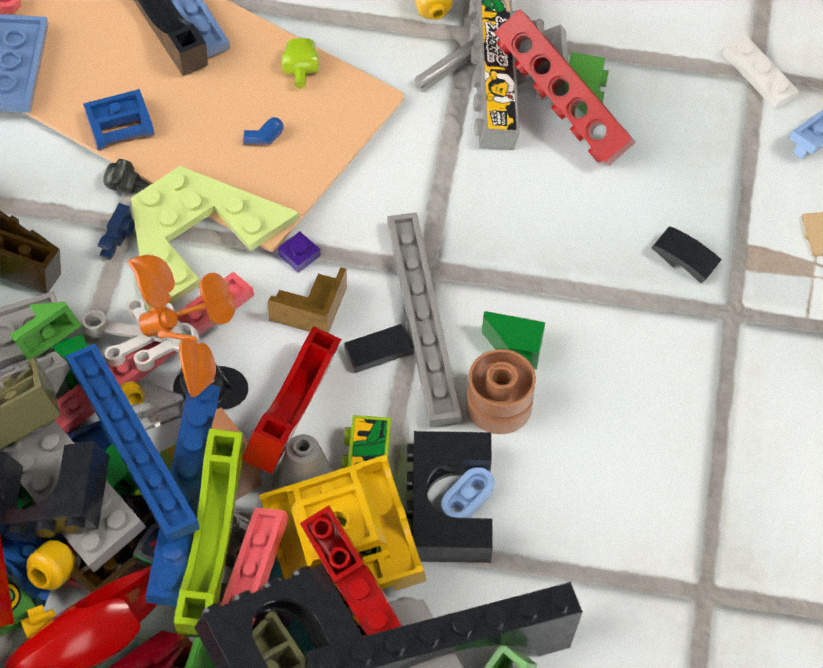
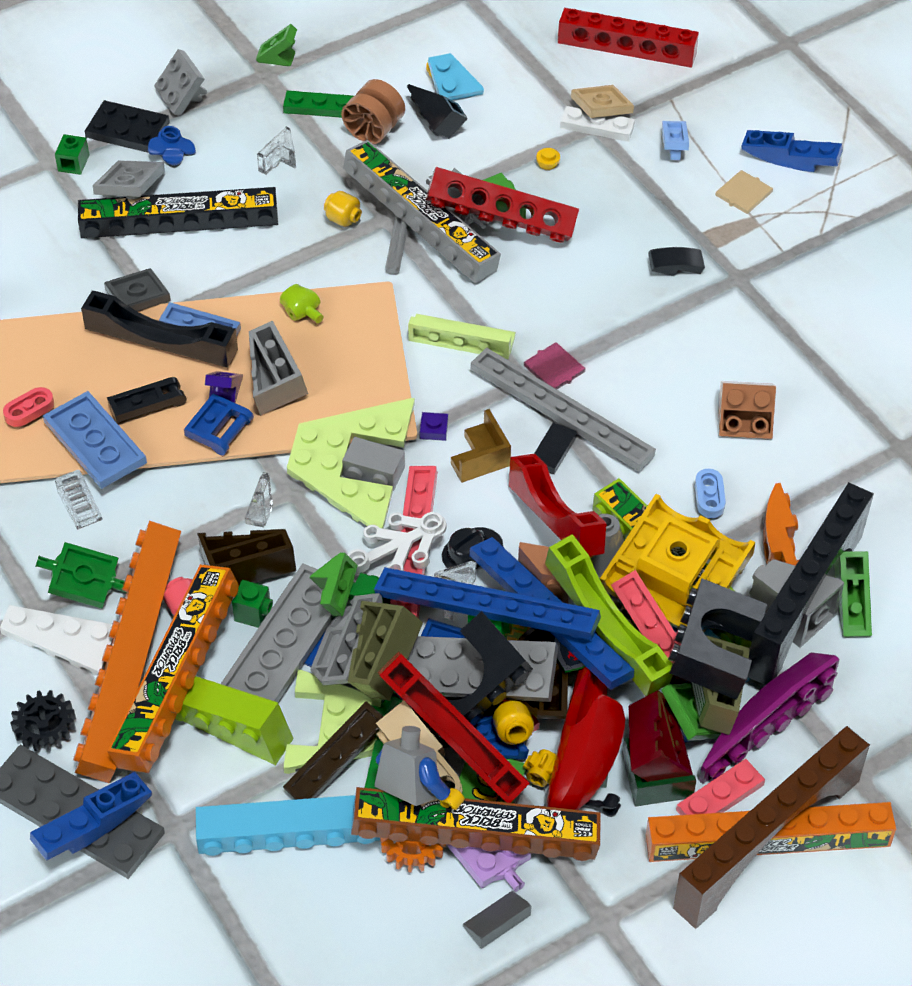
camera: 40 degrees left, 5 degrees down
(75, 211) = (261, 503): none -> clear slope
(87, 57) = (146, 399): none -> black plate
(118, 228) = (298, 492): dark blue plate -> none
(122, 177) = (263, 461): pearl dark grey piece -> none
(155, 283) = (414, 520): orange plant -> none
(157, 87) = (224, 384): none -> dark purple slope
(206, 246) = (373, 462): none -> light grey brick
(208, 103) = (273, 370): none -> light grey wedge
(266, 134) = (331, 367): blue arm -> none
(350, 572) = (719, 567): red slope -> none
(408, 190) = (460, 335): none -> yellowish green fence
(434, 533) = (679, 473): black arch -> none
(465, 274) = (554, 366): none -> clear pink piece
(492, 574) = (779, 528): none -> orange slope
(500, 391) = (665, 415): nougat wheel -> none
(514, 334) = (633, 381): green slope -> none
(589, 441) = (746, 409): none -> nougat slope
(675, 74) = (548, 158): none -> yellow plate
(783, 53) = (602, 101): none -> tan tile

